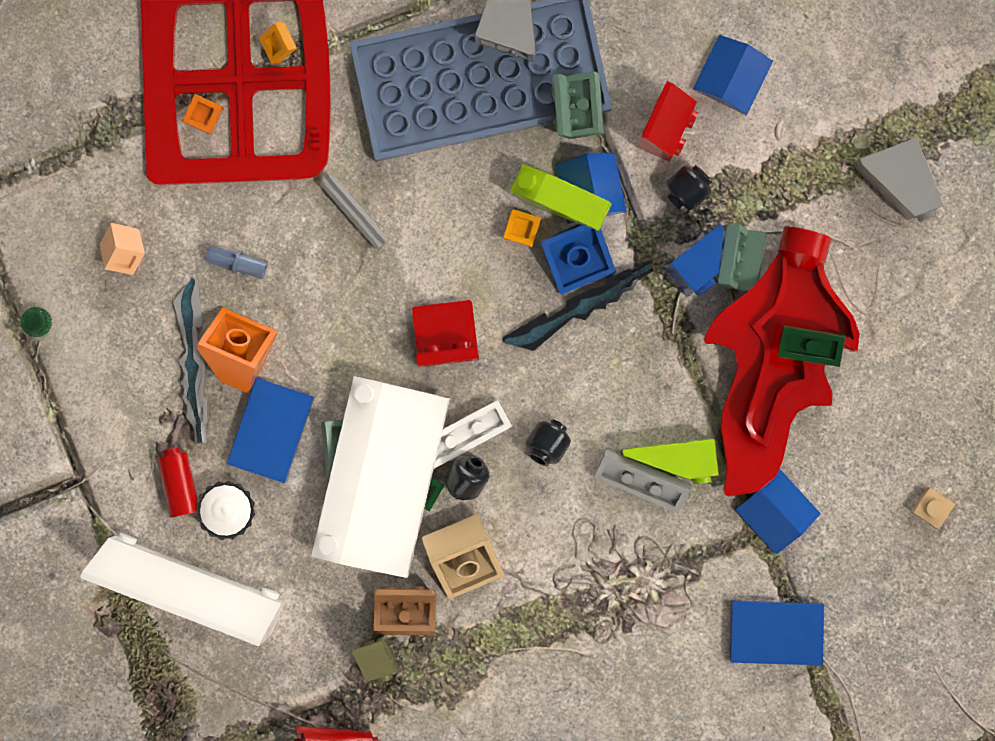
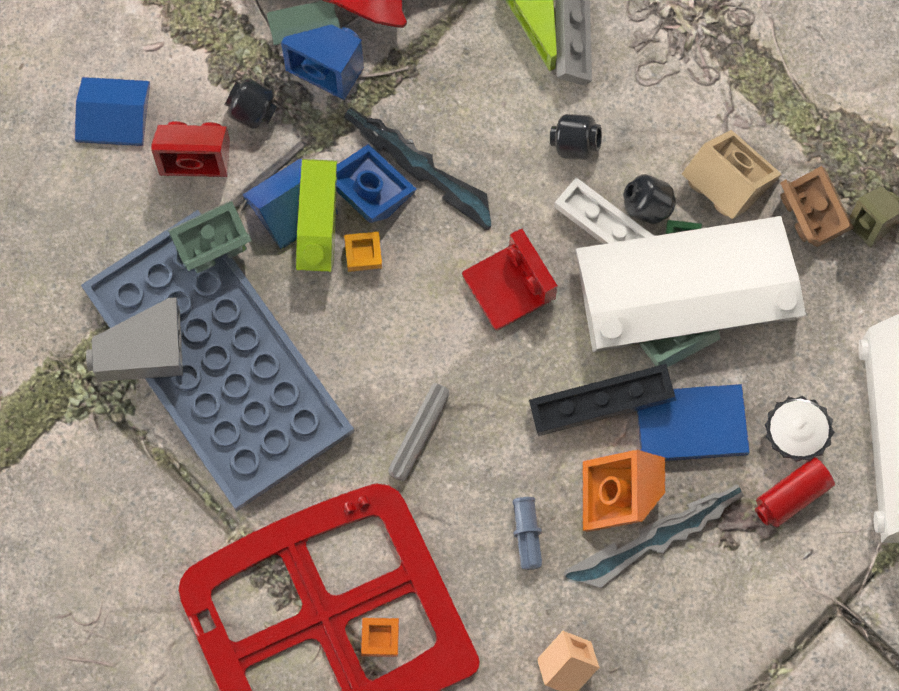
camera: 115 degrees left, 15 degrees down
(277, 42) = (267, 584): light orange plate -> none
(315, 365) = (602, 400): none -> black plate

